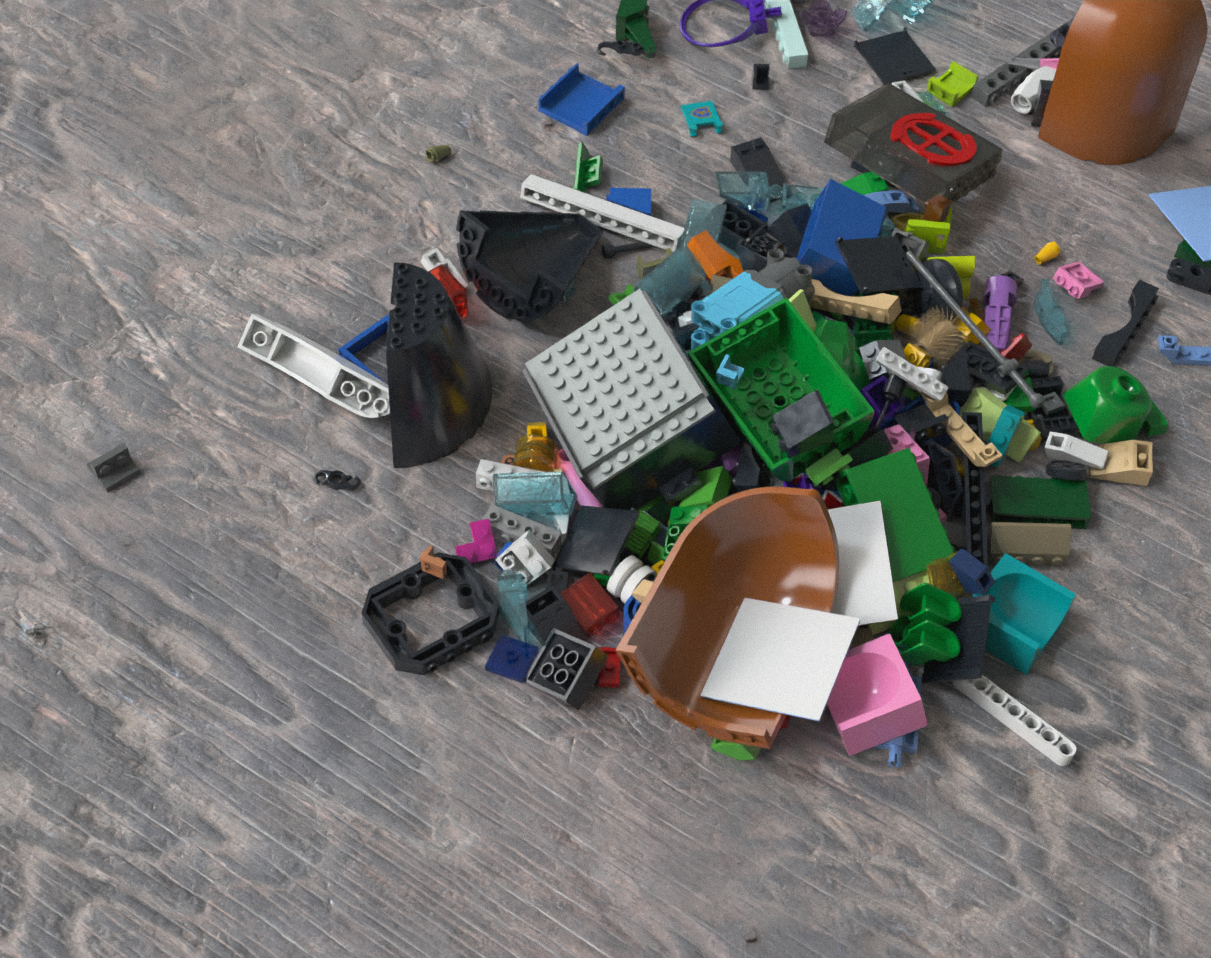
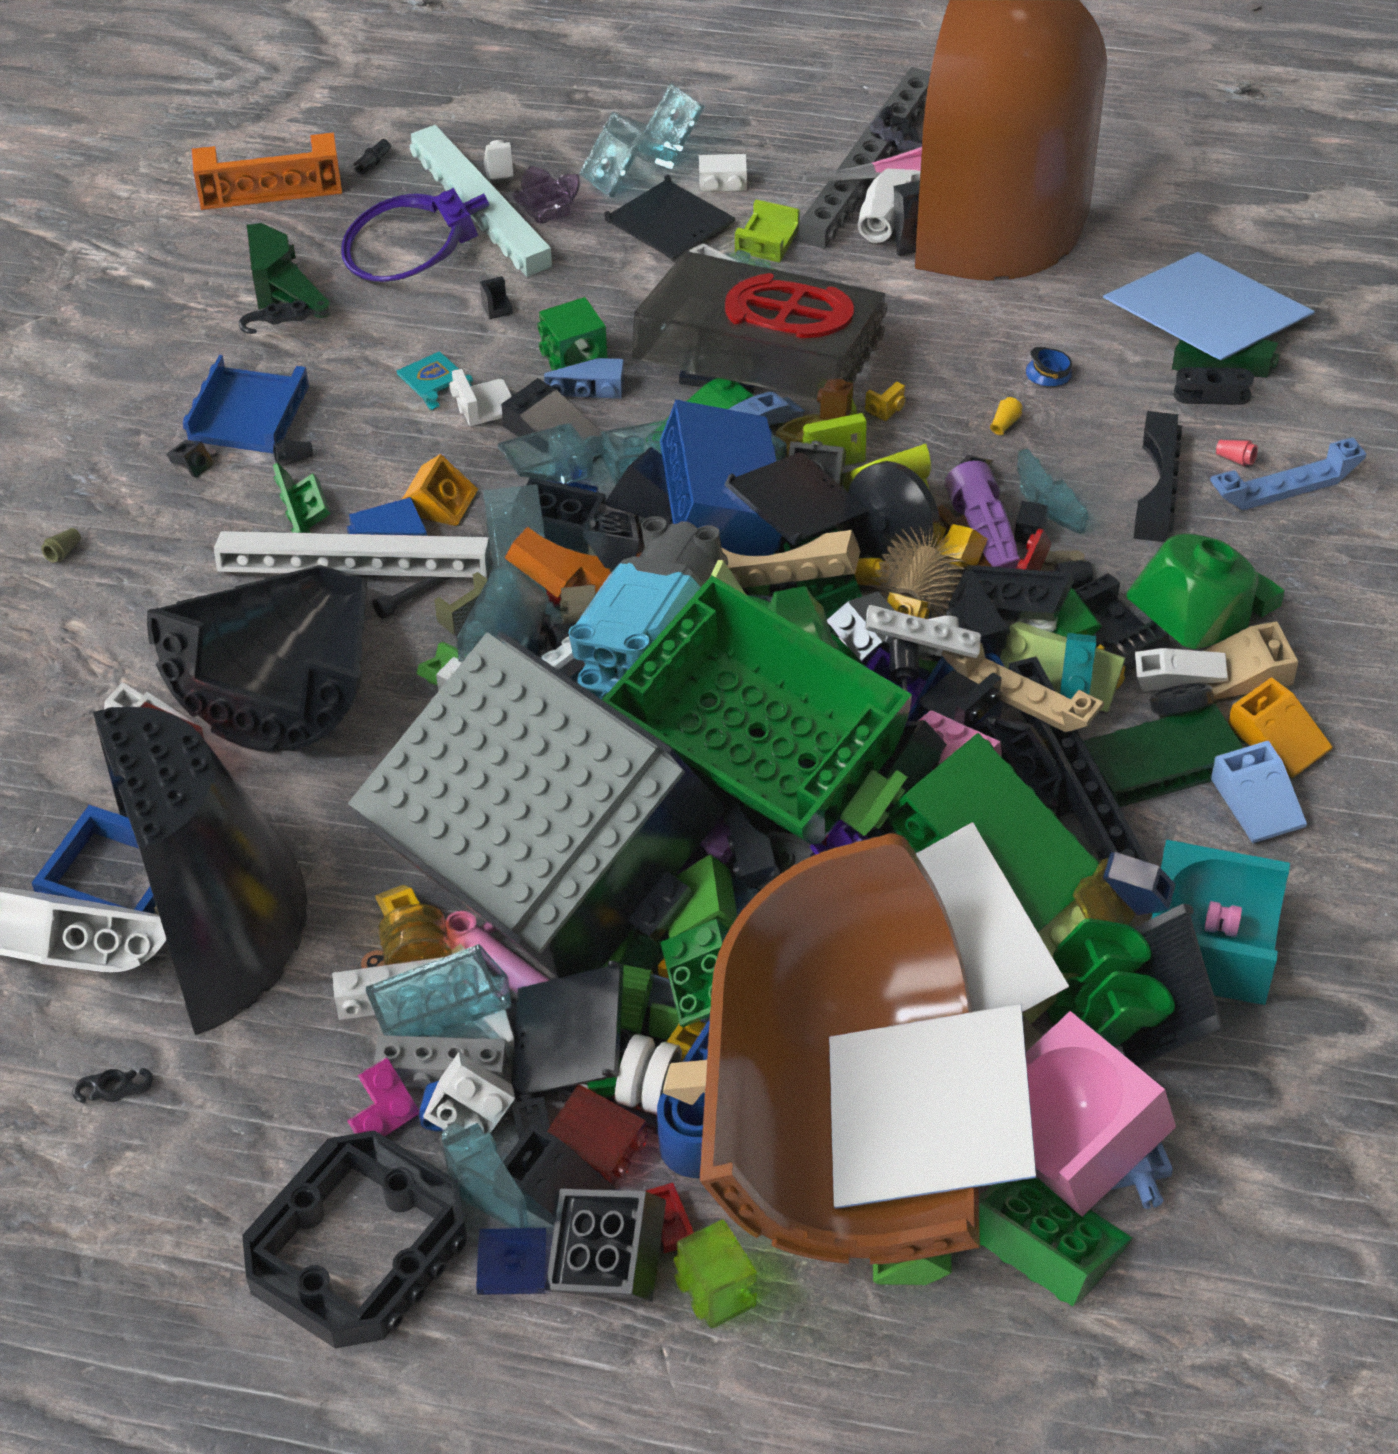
camera: 20 degrees left, 5 degrees down
(432, 564) = (329, 1160): nougat bracket -> none
(535, 121) = (191, 454): none -> black bracket
(595, 137) = (291, 451): none -> black cone
(618, 708) = (715, 1274): none -> clear neon green piece
(672, 191) = (441, 492): none -> light orange slope
(721, 140) = (481, 401): none -> white bracket
(728, 373) = (678, 711): medium azure panel -> none
(794, 118) = (571, 334): none -> green brick
(794, 147) = (589, 379): none -> medium blue slope
(803, 425) = (824, 748): black slope -> none
(822, 759) = (1048, 1238): none -> green slope
(941, 36) = (722, 172): none -> white brick
(974, 221) = (888, 403): none -> yellow bracket
(1007, 367) = (1042, 580): dark grey bar -> none
(1020, 613) = (1223, 919): none -> bright pink wheel
(1021, 721) = (1293, 1071): white beam -> none
(1029, 325) = (1030, 519): none -> black brick
(1029, 543) = (1186, 814): dark tan slope -> none
(1052, 403) = (1115, 614): dark grey plate -> none
(1077, 279) = (1064, 438): bright pink plate -> none
(1088, 545) = (1258, 791): none -> light blue slope
(1092, 230) = (1049, 367): none -> blue piece
(1121, 509) = (1278, 717): none -> light orange slope
(1188, 325) = (1238, 451): none -> coral cone

